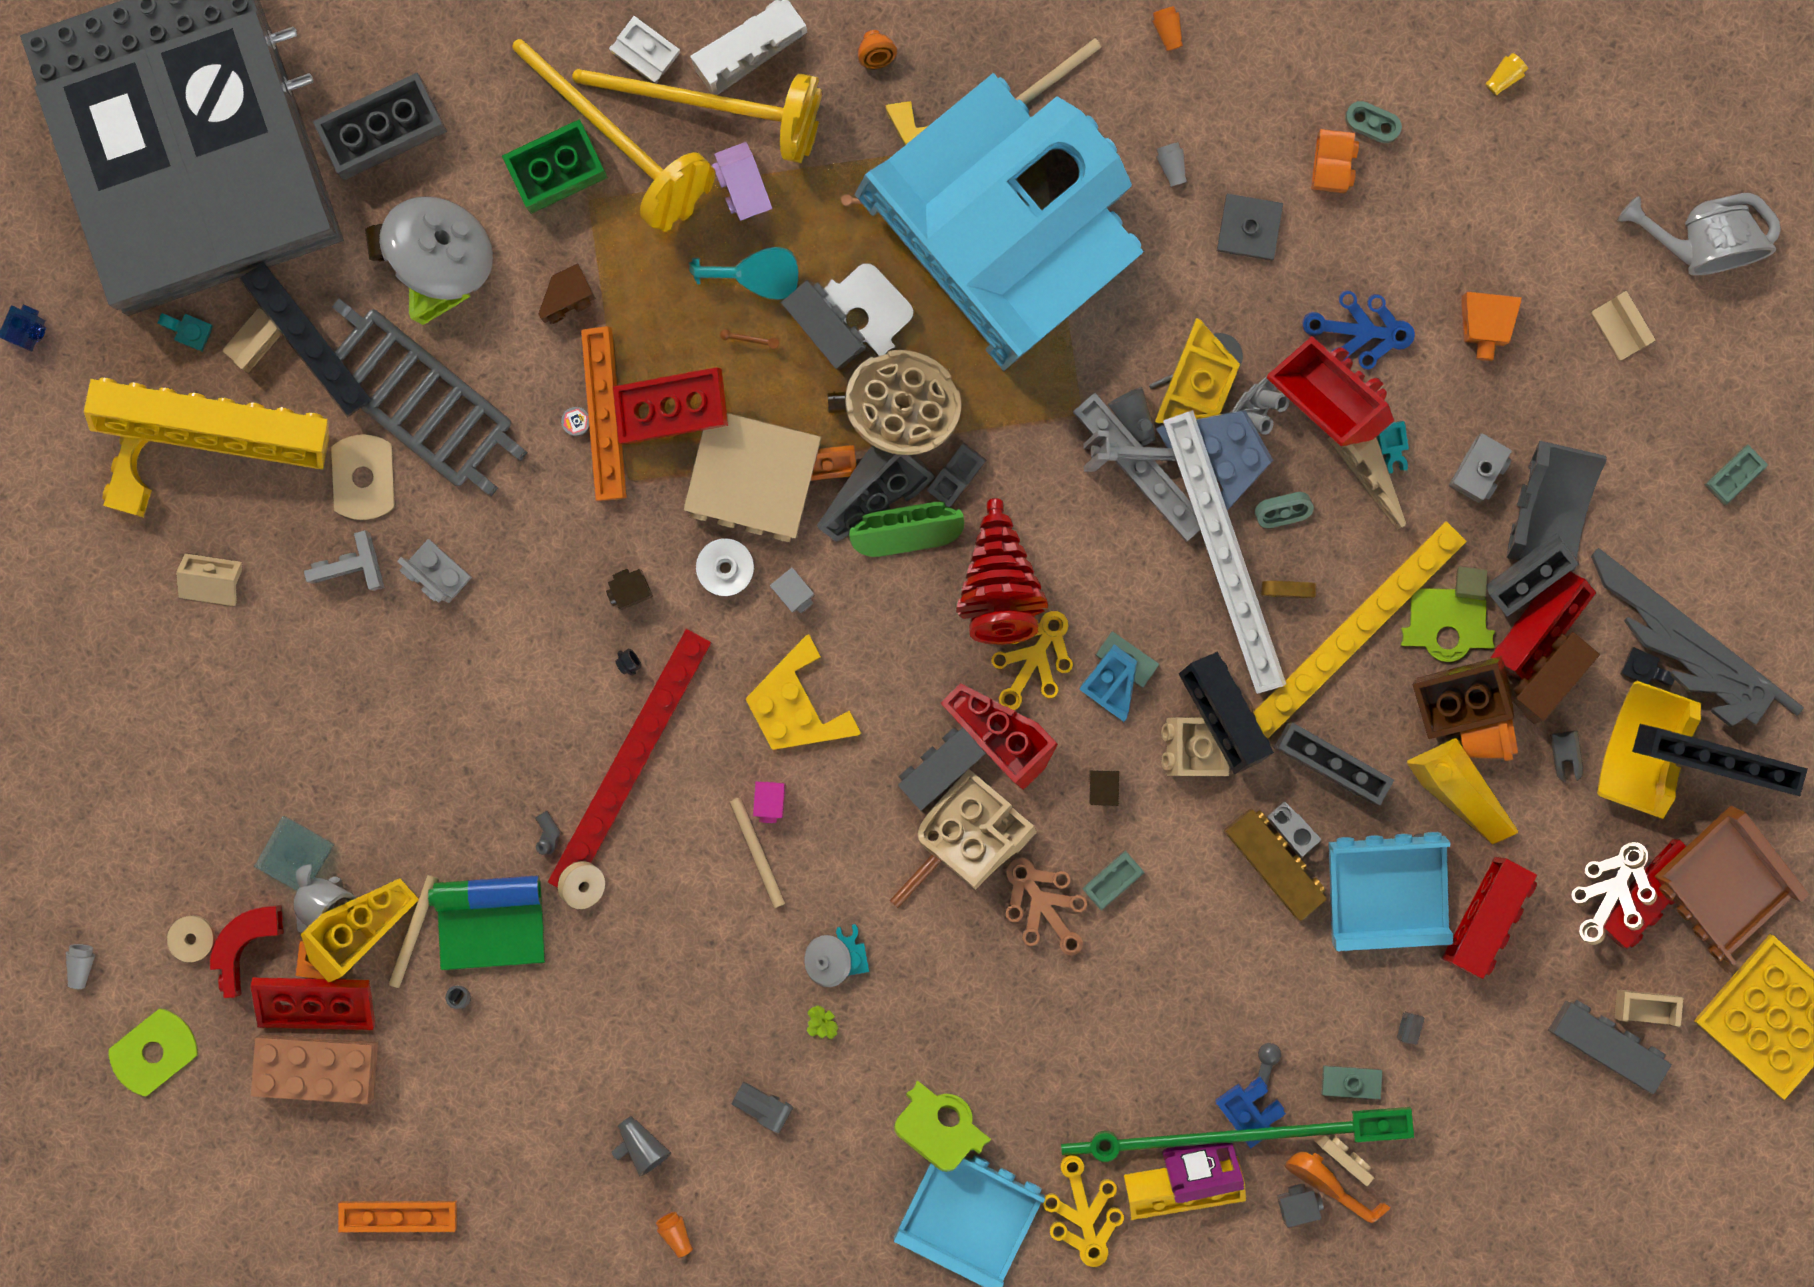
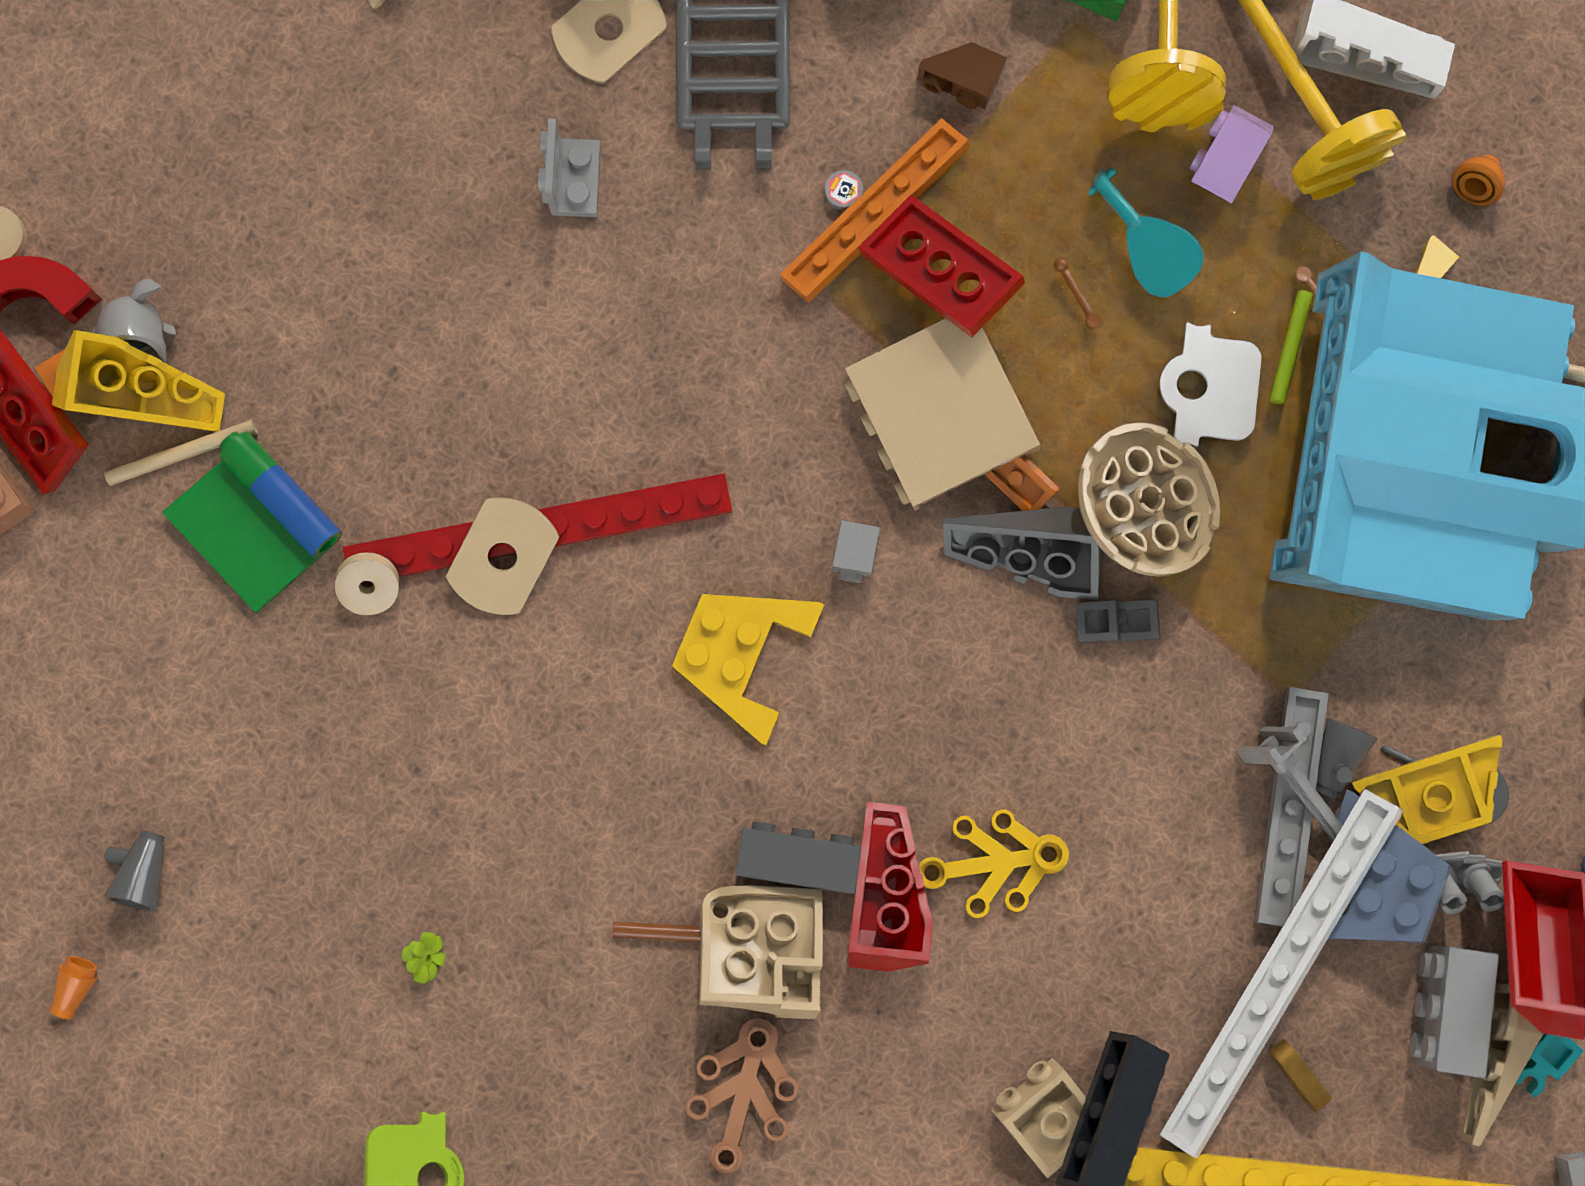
camera: 45 degrees right, 5 degrees down
(290, 849) = (170, 259): clear light blue plate -> none
(350, 563) = (508, 82): light grey bracket -> none
(454, 994) = (147, 547): dark grey hinge -> none
(550, 834) = (395, 510): dark grey arm -> none
(625, 770) = (510, 523): none -> tan piece
(628, 589) = (716, 381): dark brown brick -> none
(628, 662) = (640, 443): black plate -> none
(721, 552) = (816, 441): white dish -> none
(757, 852) = (551, 740): tan bar -> none
(765, 1108) = (284, 975): dark grey piece -> none
(769, 801) = (614, 707): dark pink brick -> none
(825, 324) = (1159, 354): dark grey brick -> none
(827, 961) = (495, 908): light grey piece -> none
(836, 402) = (1088, 433): dark brown piece -> none
(857, 951) = (521, 930): teal plate -> none
(882, 243) = (1290, 347): none -> lime bar
(906, 529) = (1018, 616): bright green brick -> none
(1000, 584) = (1042, 765): red plant -> none
(1104, 788) = (922, 1052): dark brown panel -> none
(1112, 682) = (1042, 967): dark azure wing -> none
(1113, 880) = (831, 1145): sand green plate -> none
(1145, 664) = (1078, 963): sand green plate -> none
(1284, 510) = (1375, 999): sand green plate -> none
(1323, 475) = (1454, 1010): none -> light grey brick

